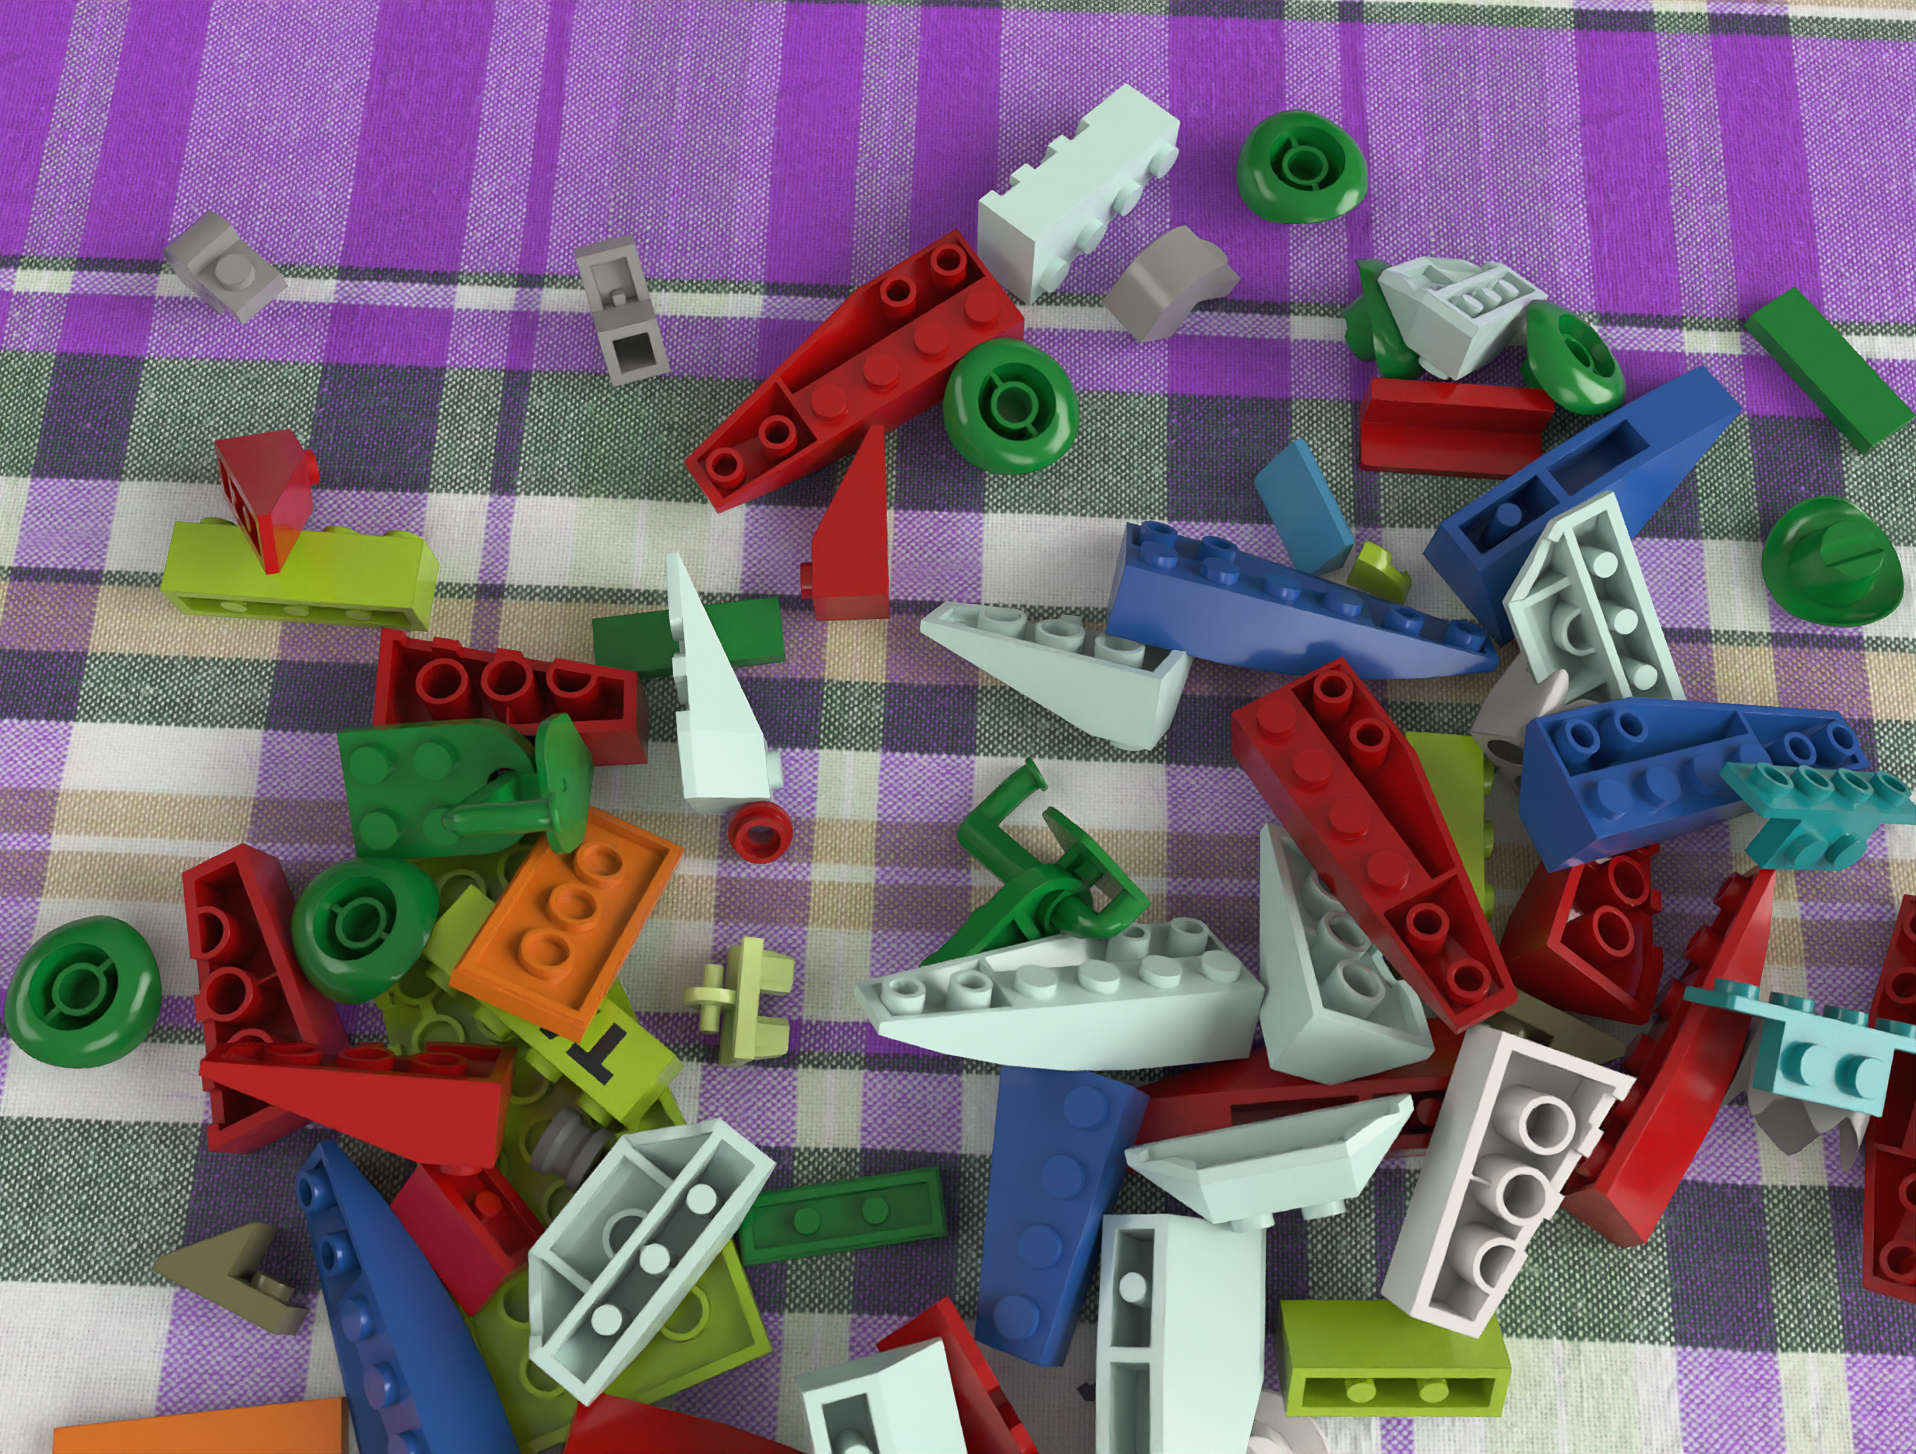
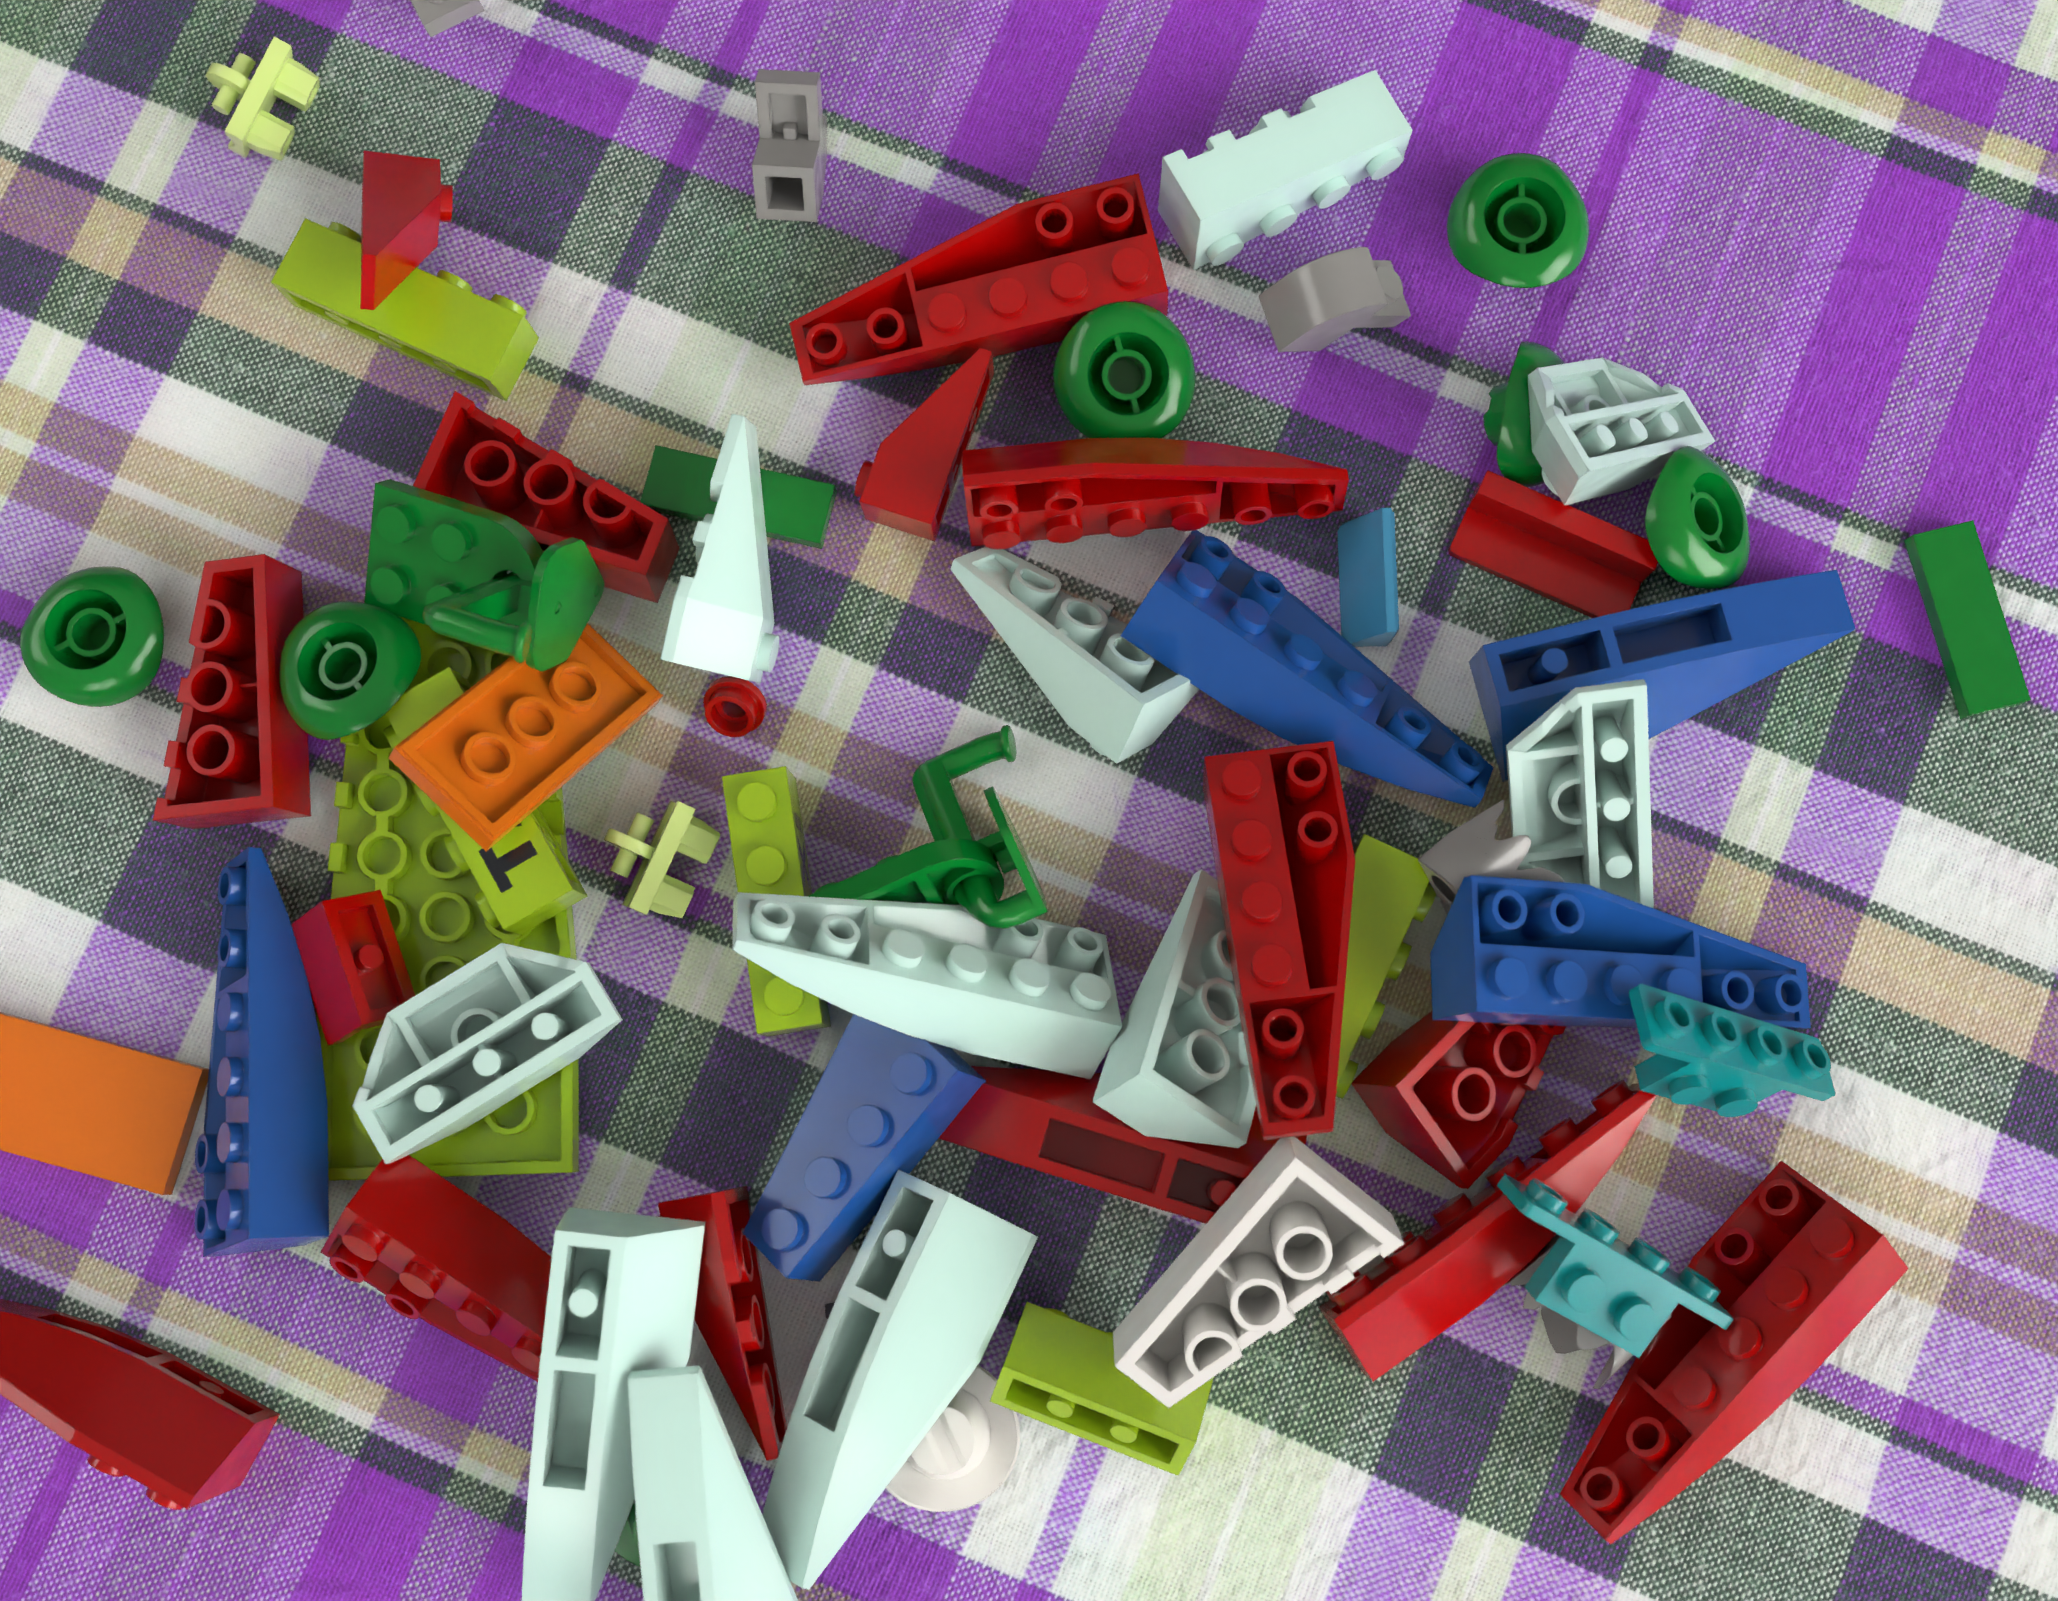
camera: 30 degrees right, 10 degrees up
(100, 409) = (275, 77): none -> yellowish green hips
(223, 1271) = (139, 931): olive slope -> none
(424, 1106) = (330, 847): red wedge -> none
(571, 1149) = (458, 935): dark grey wheel -> none
(843, 1217) = (681, 1079): green tile -> none
(848, 951) = (772, 860): none -> lime brick
(1060, 501) = (1135, 486): none -> red wedge
(1276, 1163) = (1058, 1185): light aqua wedge -> none
(1377, 576) = (1408, 664): lime tile -> none
(1556, 1030) = (1385, 1173): olive slope -> none
(1832, 564) = (1870, 819): green hat -> none

